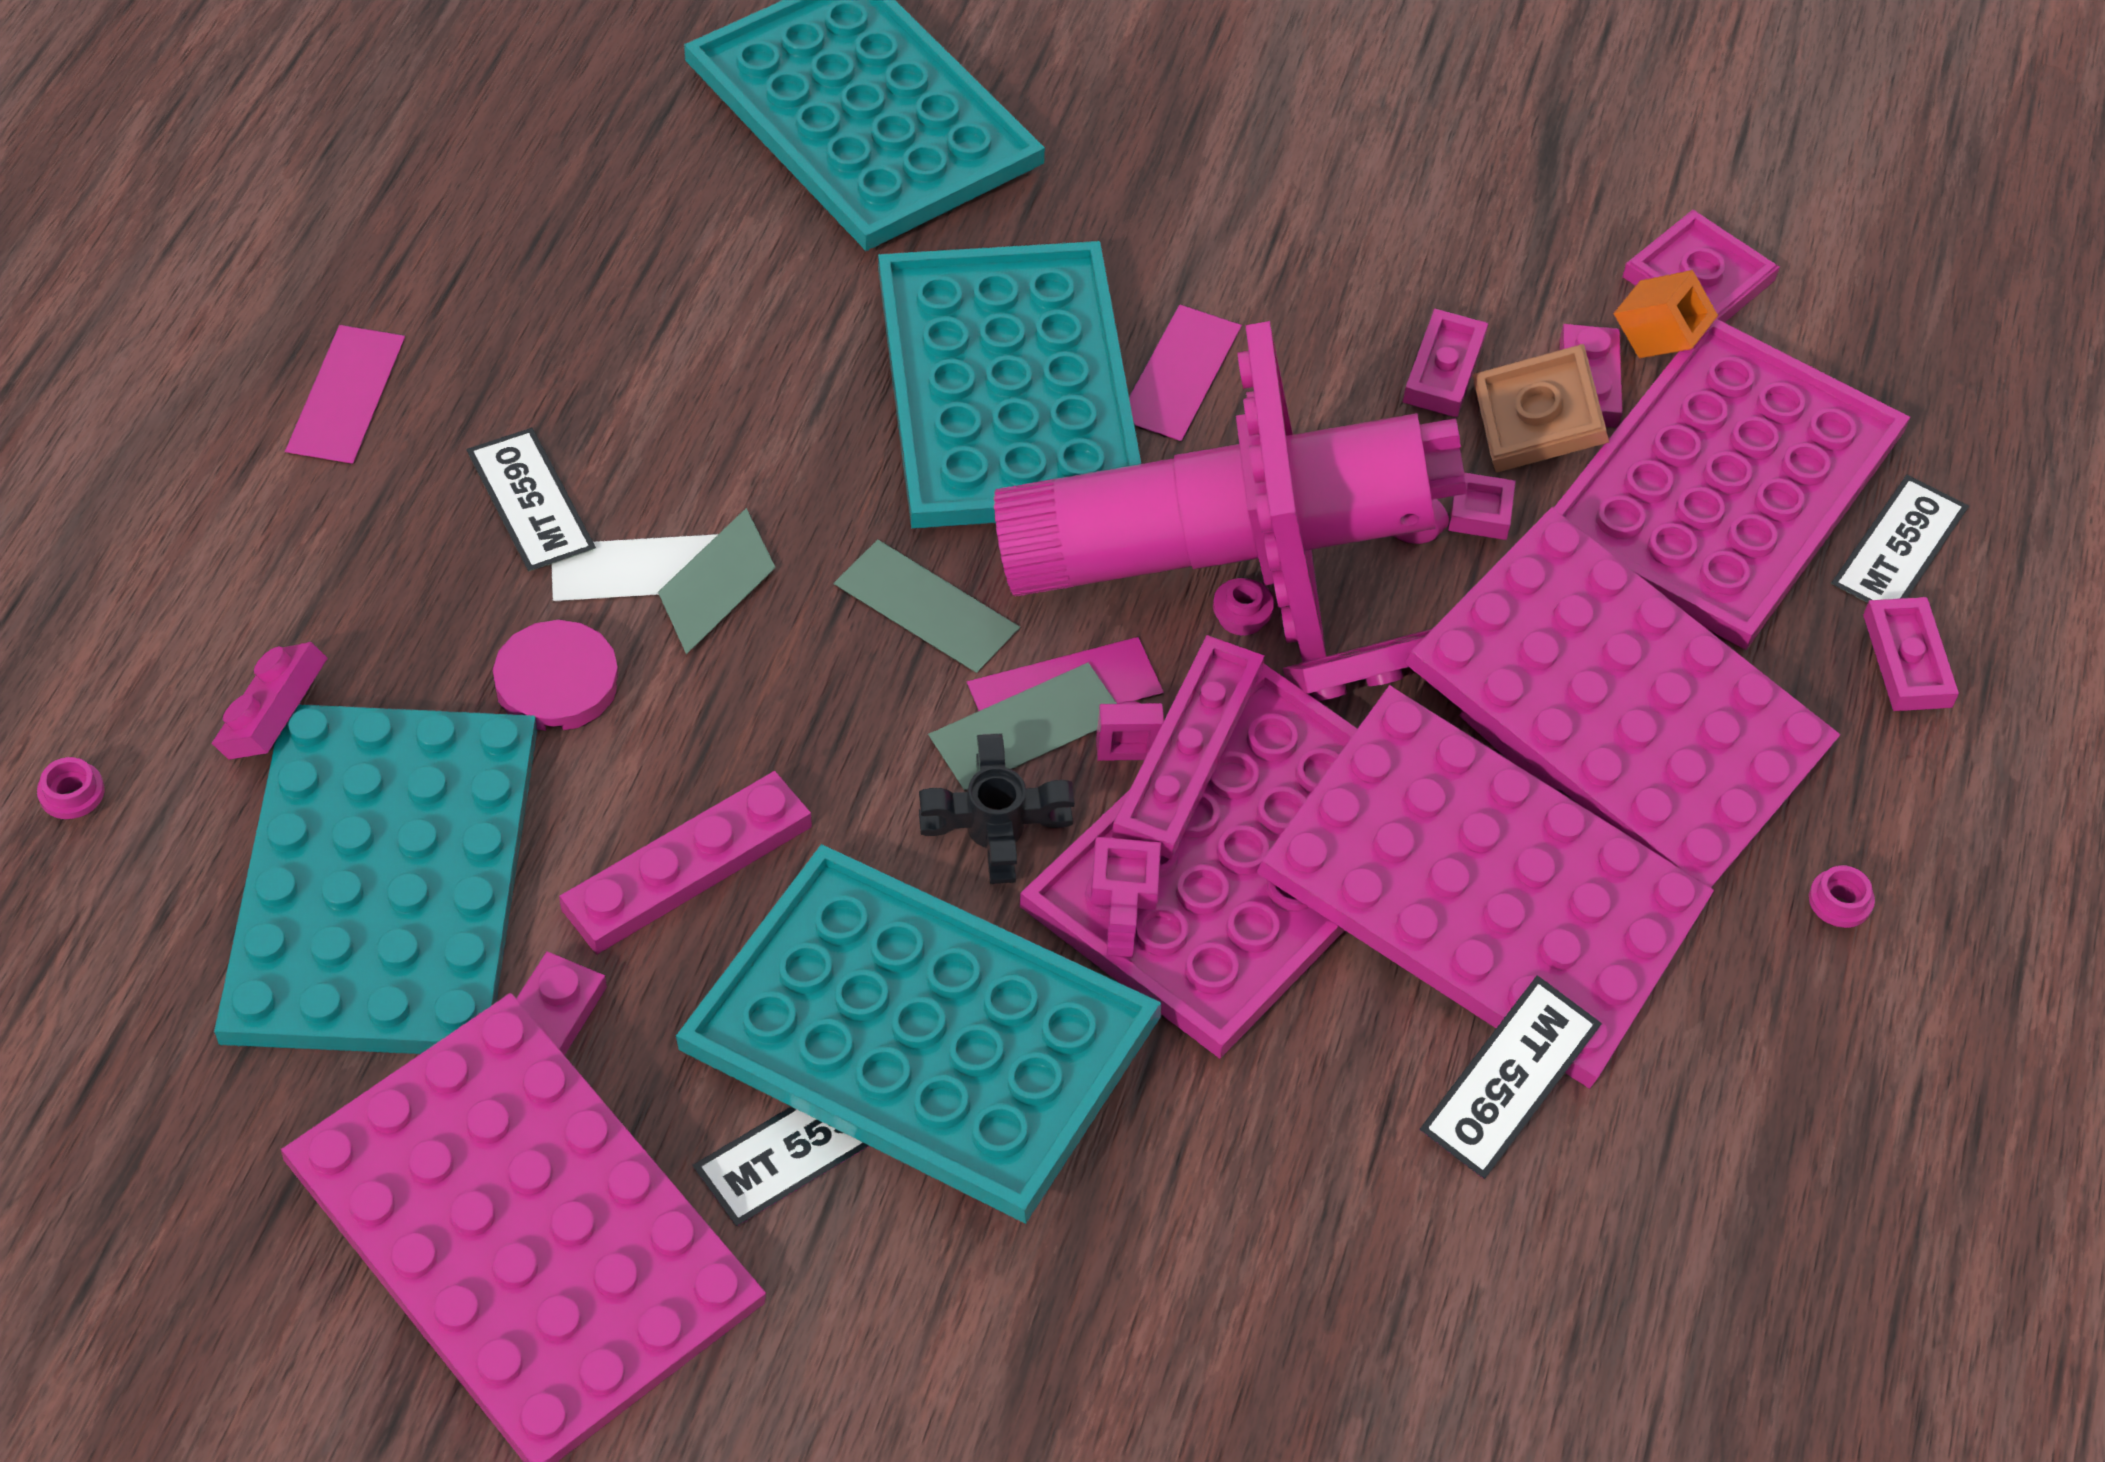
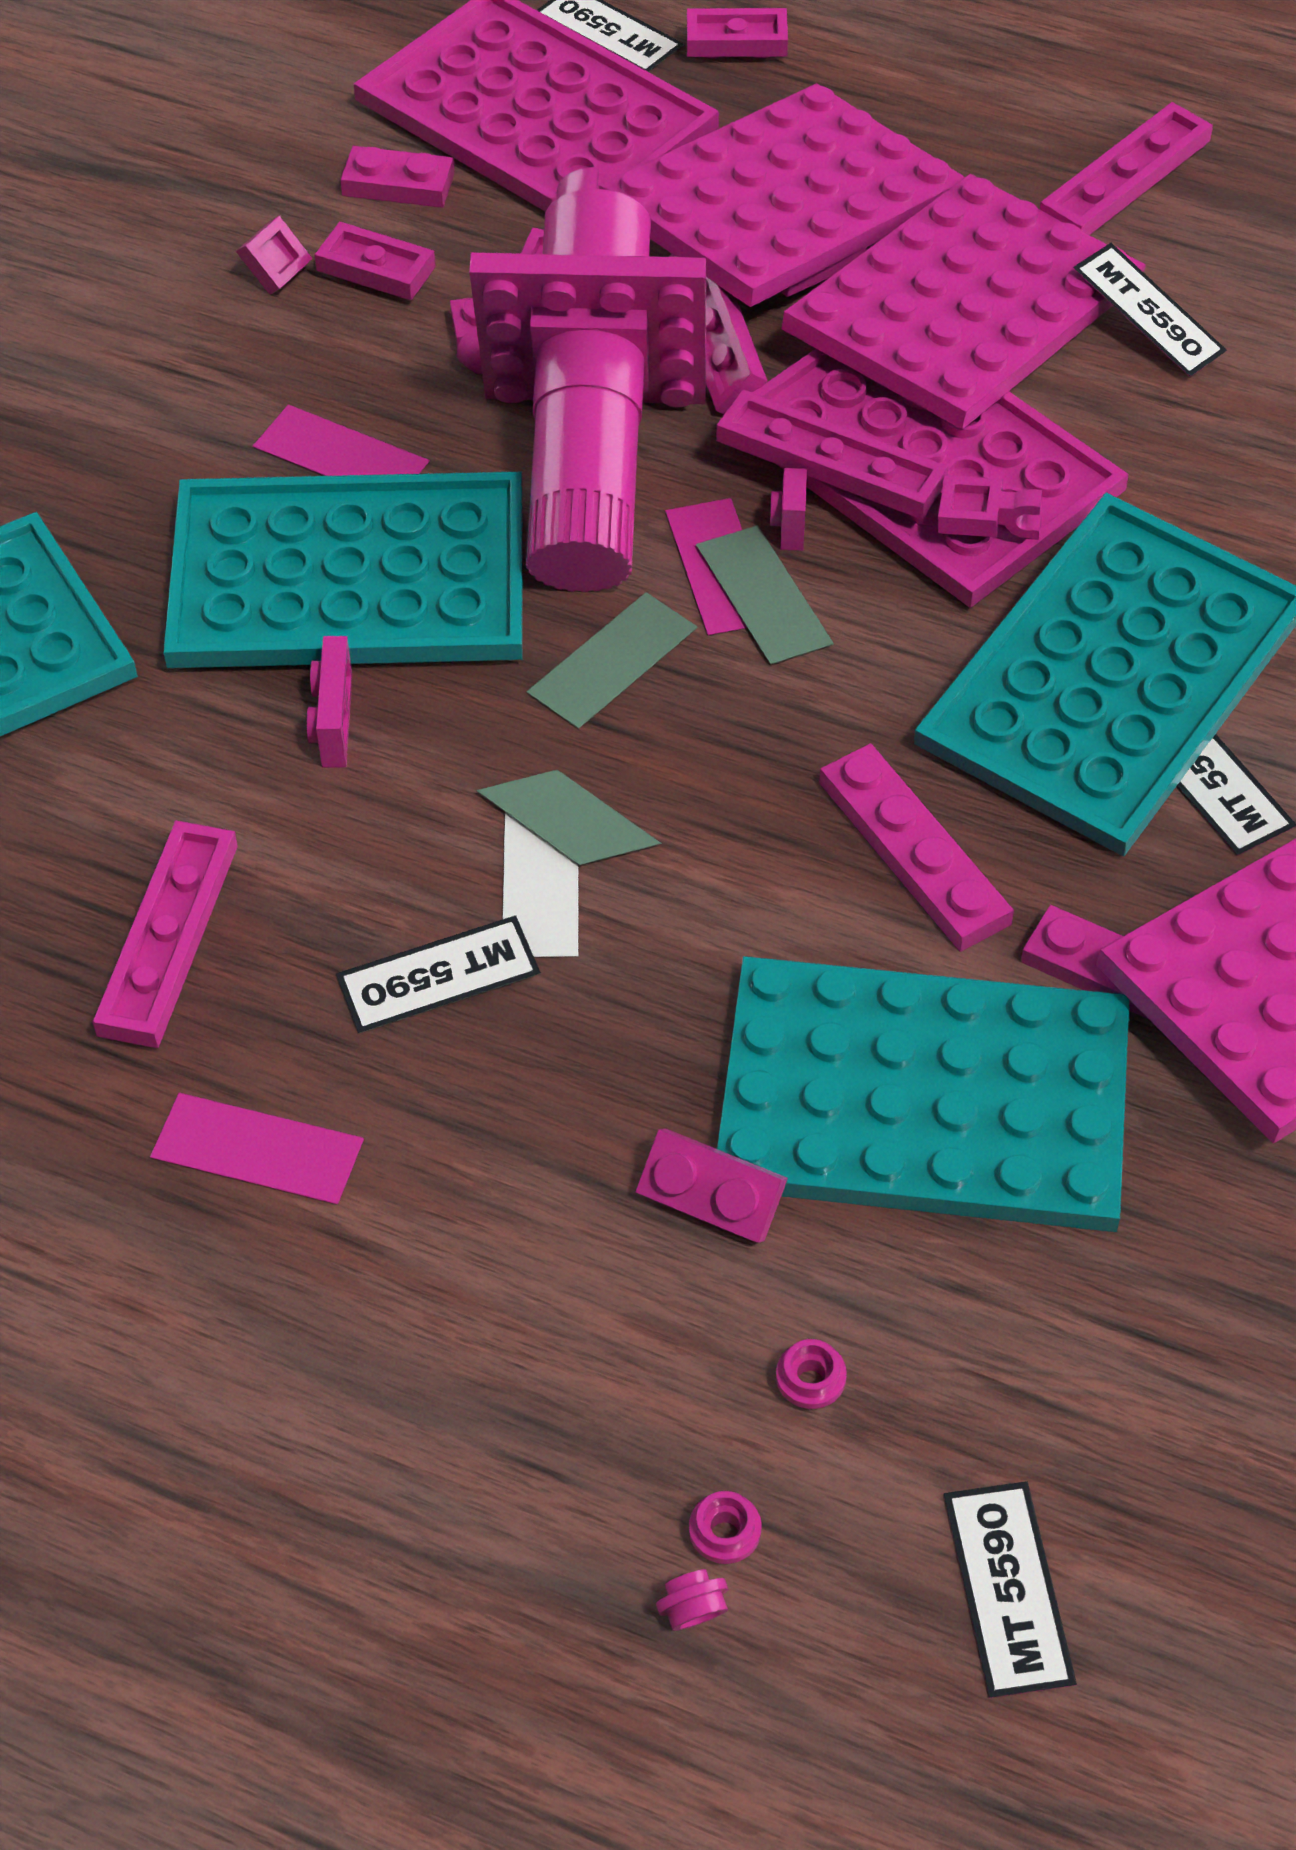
camera: 80 degrees left, 0 degrees up
(556, 674) = (684, 945): dark pink tile -> none
(561, 298) = (165, 934): none -> dark pink plate
(832, 383) = (333, 685): none -> dark pink plate
(991, 828) = (874, 607): black pin -> none
(1240, 617) = (654, 429): dark pink plate -> none
(1431, 279) = (274, 255): none -> dark pink plate
(1540, 408) = (446, 201): nougat tile -> none
(1666, 314) = (354, 106): orange brick -> none
(1723, 264) = (283, 92): dark pink tile -> none
(1767, 1060) = (1128, 168): none -> dark pink plate
(1847, 884) = (972, 108): dark pink plate -> none

